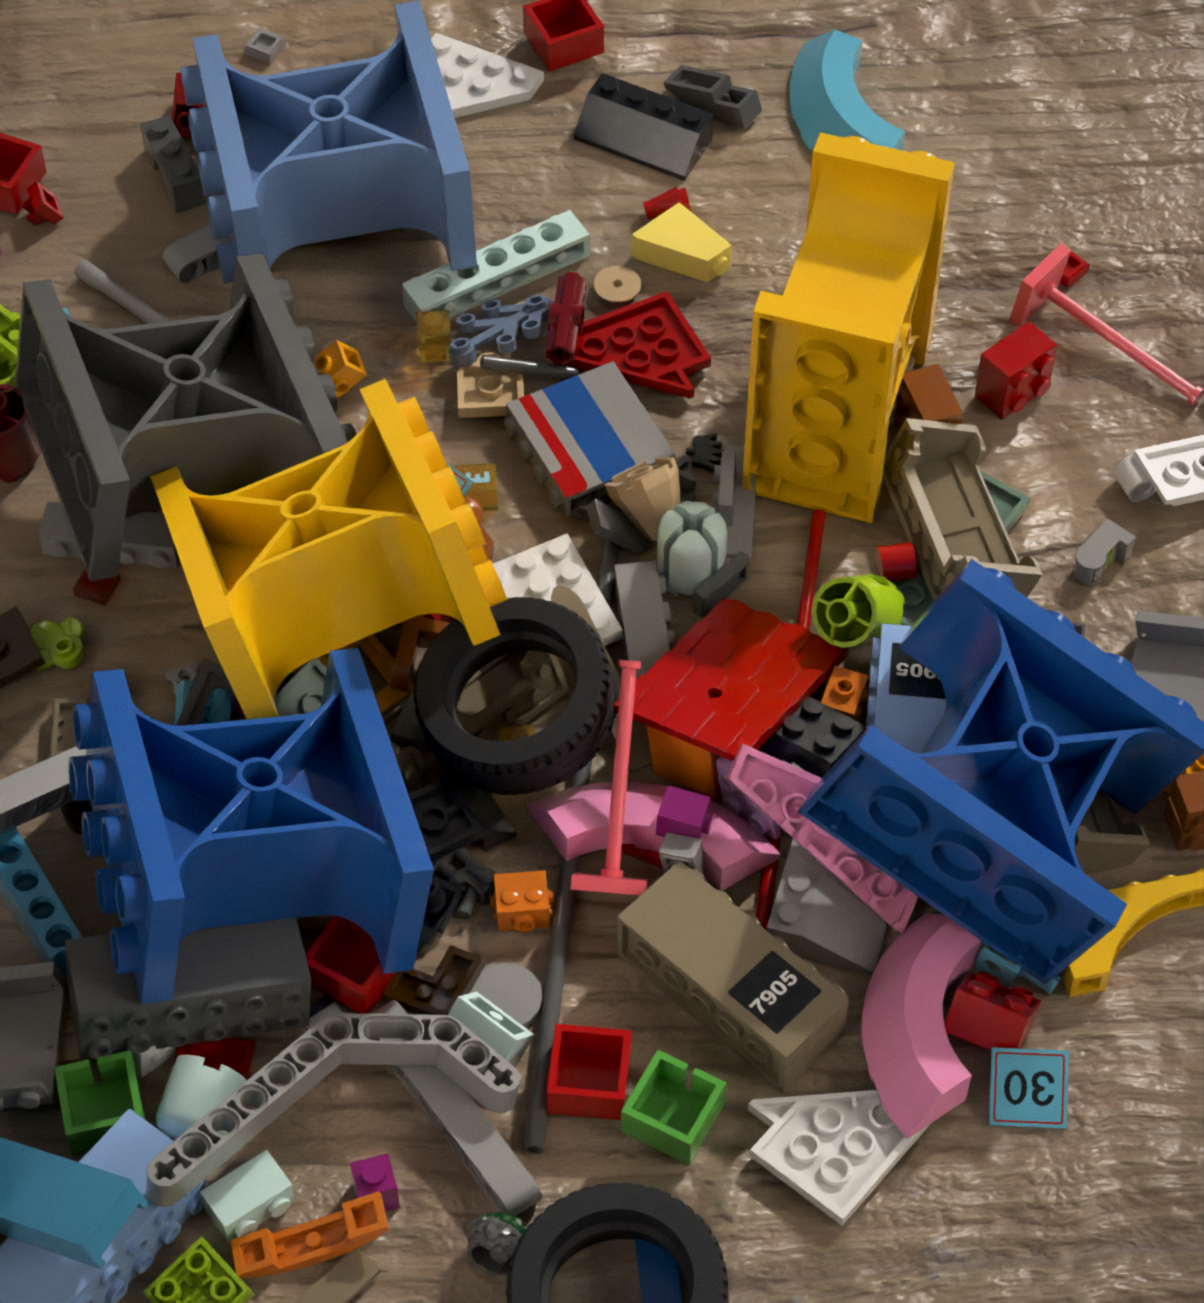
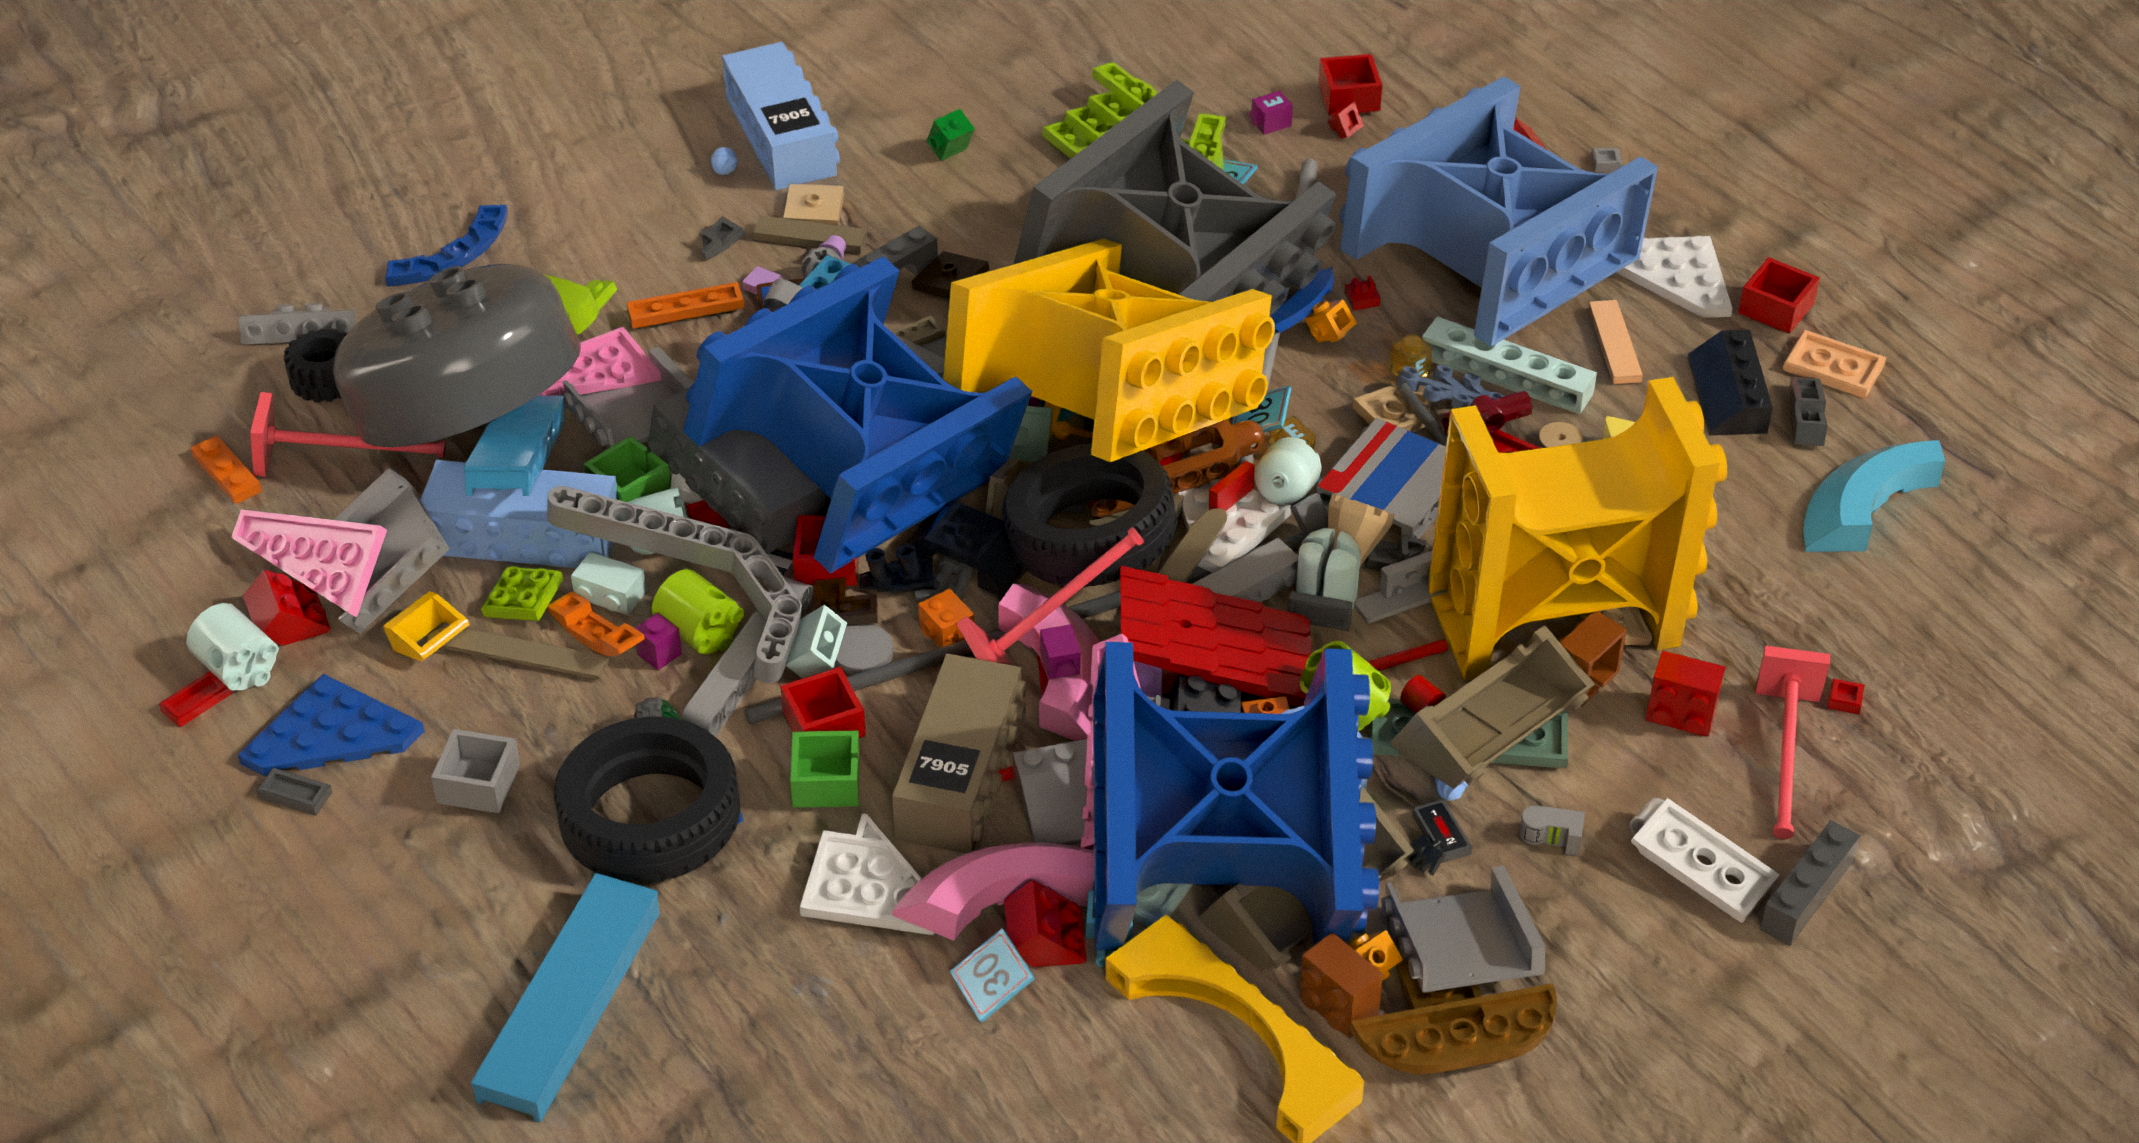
camera: 60 degrees right, 10 degrees down
(306, 317) = (1362, 294): none -> red tile
(365, 1125) = (699, 610): none -> lime cylinder
(522, 177) = (1615, 342): none -> light nougat tile
(529, 565) = (1232, 487): none -> red tile
(536, 510) = (1294, 463): none -> light aqua cylinder
(663, 45) = (1834, 363): none -> light nougat tile
(681, 848) = (1035, 676): light grey slope -> none

